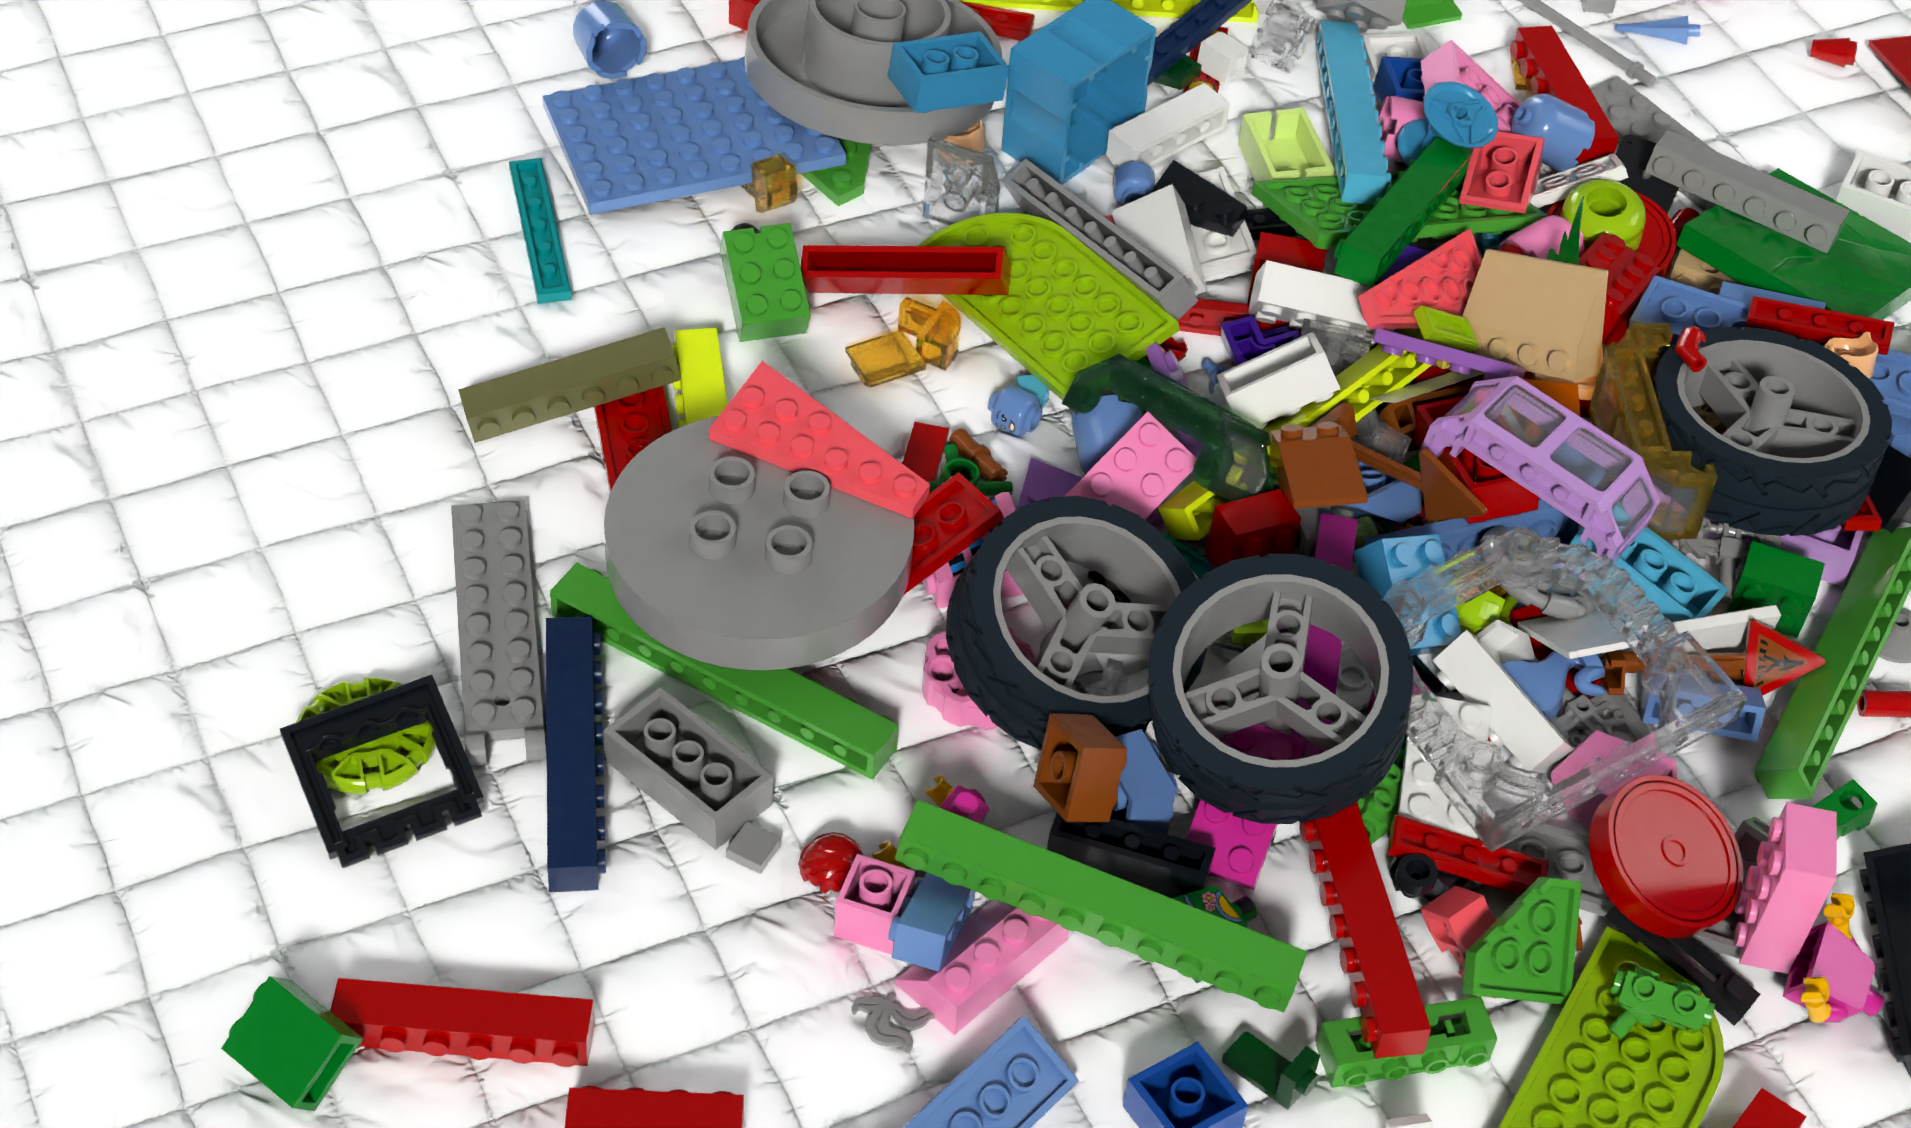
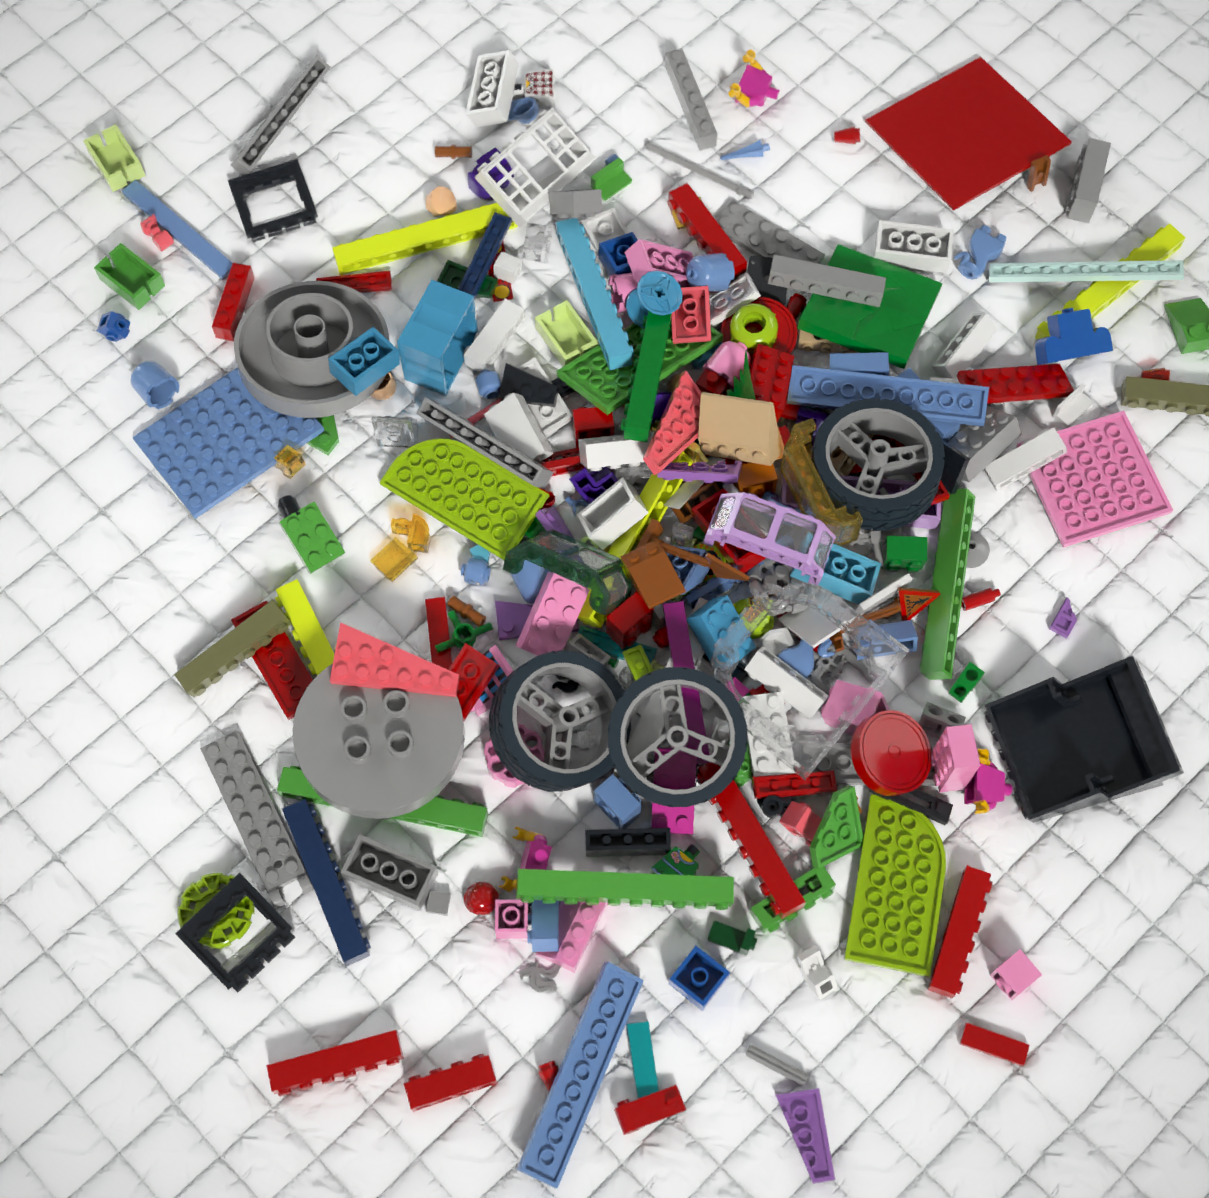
camera: 15 degrees left, 20 degrees up
(291, 1043) = (258, 1110): green brick -> none
(539, 231) = (169, 536): teal tile -> none
(906, 270) = (386, 502): red brick -> none
(1080, 768) = (590, 812): dark orange brick -> none
(1446, 329) = (693, 452): lime tile -> none
(1648, 999) = (903, 837): bright green brick -> none
(1687, 348) = (826, 433): red arm -> none
(1816, 323) = (889, 376): red tile -> none
(1859, 351) = (911, 395): light nougat hair -> none

